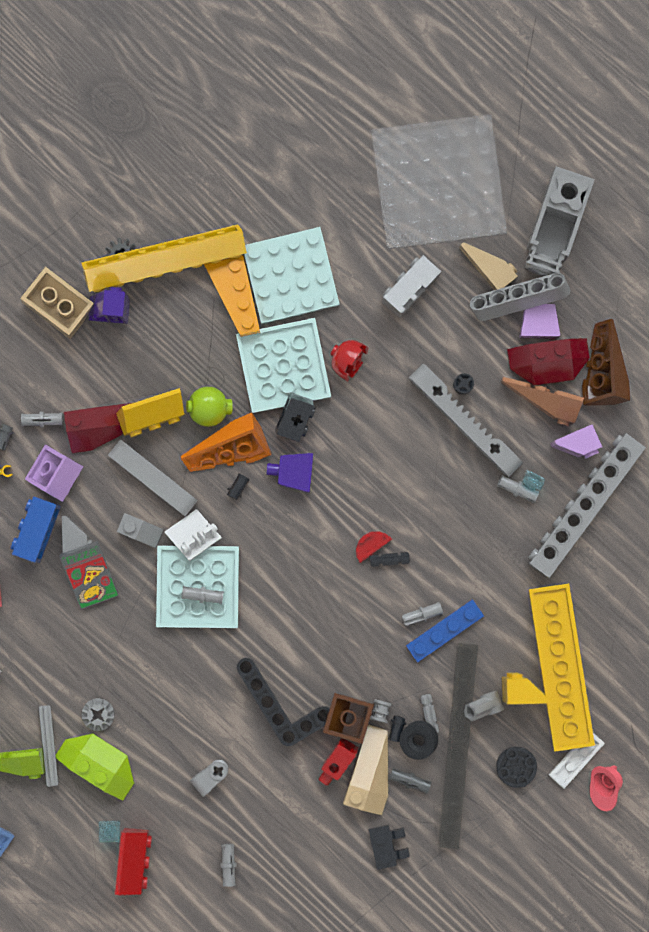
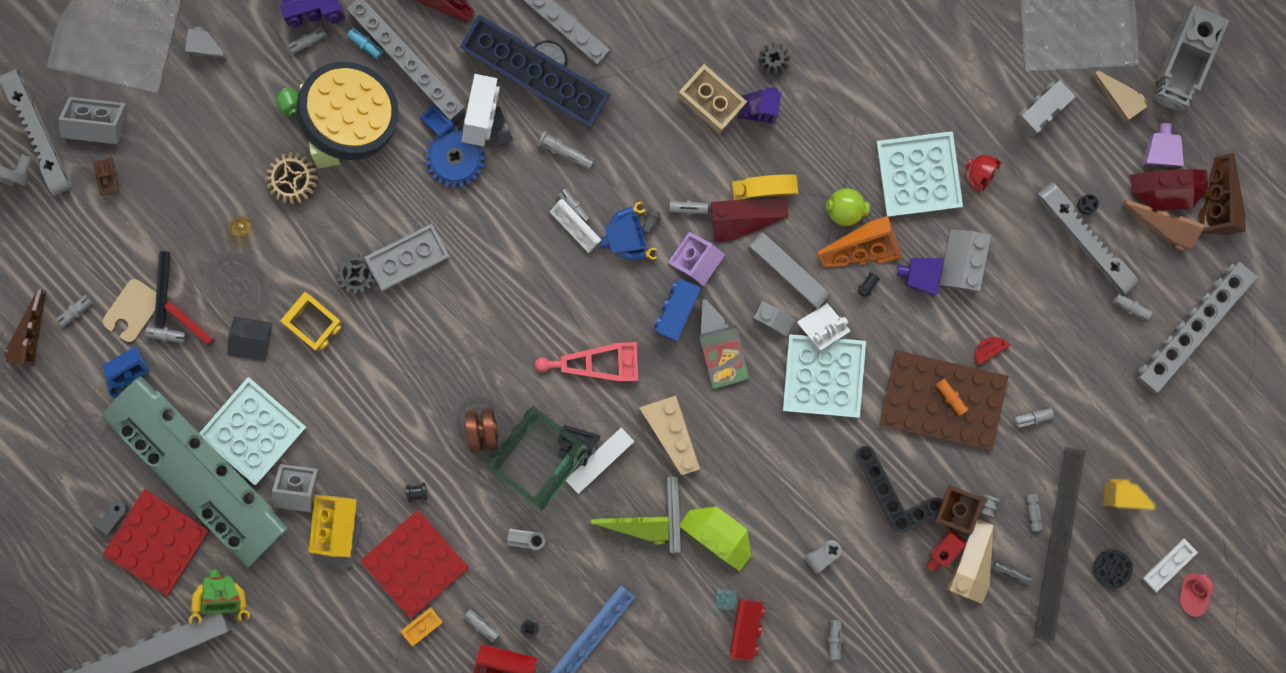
camera: 10 degrees right, 0 degrees up
(40, 659) = (671, 431): none -> tan wedge
(98, 704) = (712, 489): light grey gear -> none
(121, 391) = (765, 187): none -> yellow arch
(151, 413) = (793, 209): yellow slope -> none
(164, 258) = (816, 64): yellow brick -> none
(202, 595) = (829, 383): light grey pin -> none
(234, 290) = (878, 99): light orange wing -> none
(291, 275) = (931, 90): light aqua plate -> none
(295, 405) = (928, 212): black brick -> none
(326, 602) = (920, 408): none -> reddish brown plate
(332, 599) = (951, 397): none -> orange pin
(337, 453) = (965, 260): none -> light grey slope
(383, 848) = (981, 633): black plate -> none
(389, 559) = (1006, 364): black axle -> none
(397, 727) = (1002, 523): black pin -> none
(408, 744) = (1028, 526): black tyre -> none
(444, 630) = (1053, 435): blue plate -> none
(487, 705) = (1089, 508): light grey piece -> none
(520, 296) = (1149, 125): light grey beam -> none
(533, 480) = (1147, 300): clear light blue plate -> none
(561, 667) = (1162, 477): yellow plate -> none
(579, 443) = (1195, 268): lavender slope -> none

